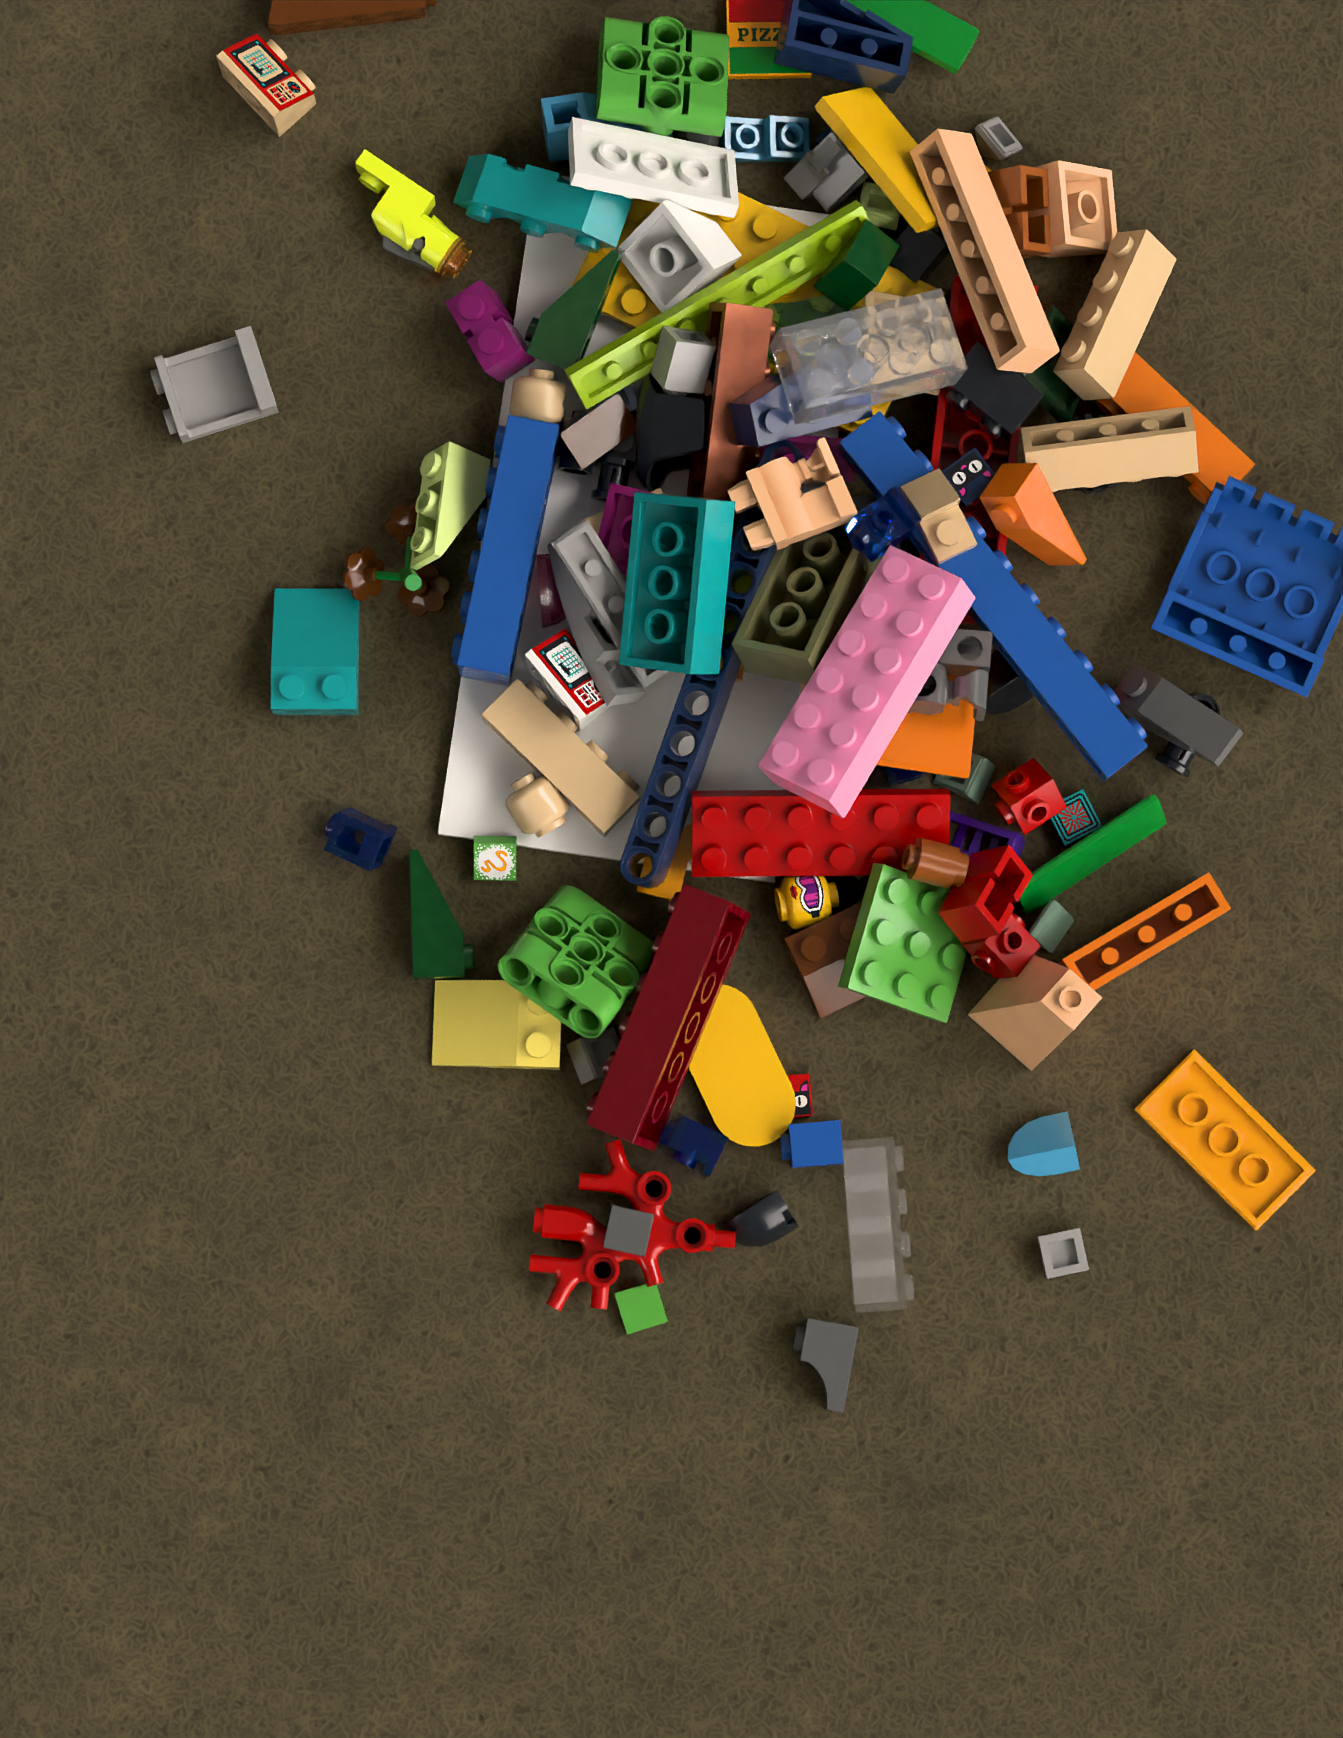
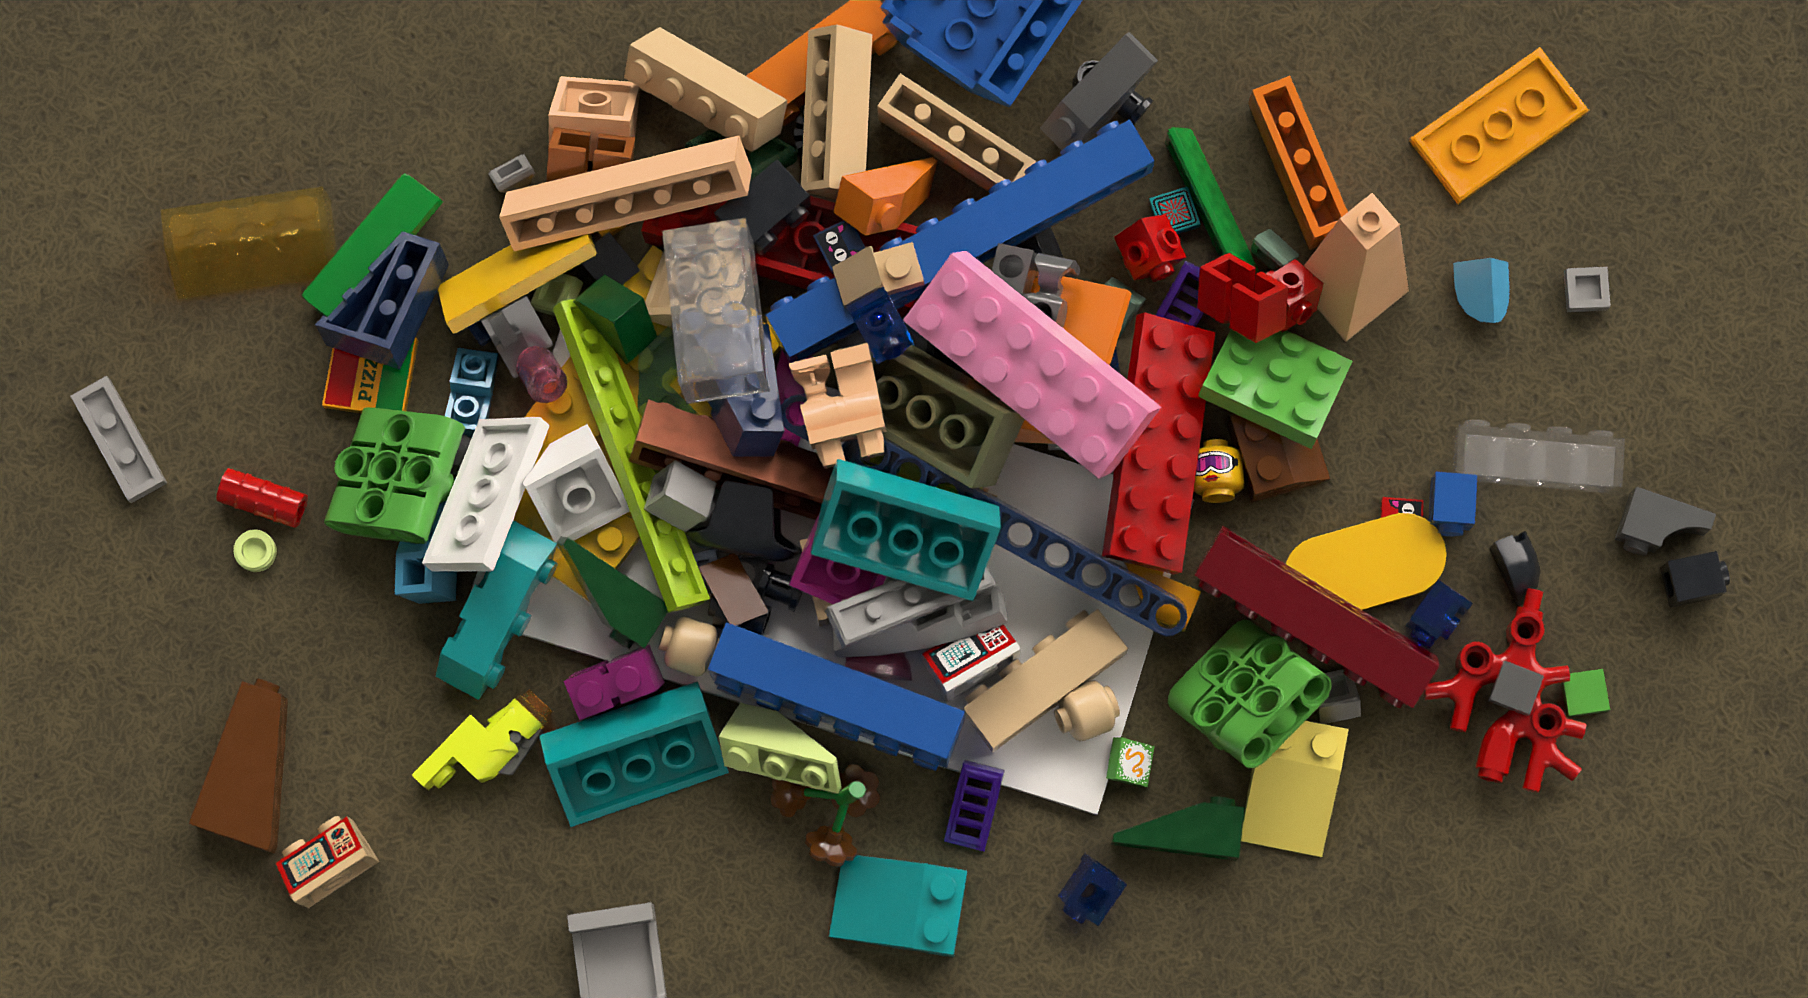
camera: 70 degrees left, 5 degrees down
(423, 363) = (633, 754): none -> teal slope
(458, 709) = (983, 773): none -> dark purple slope
(774, 1402) = (1694, 579): none -> black brick
(788, 202) = (541, 374): none -> clear pink brick
(935, 863) = (1208, 337): dark orange brick -> none
(1110, 575) = (950, 135): none -> tan brick

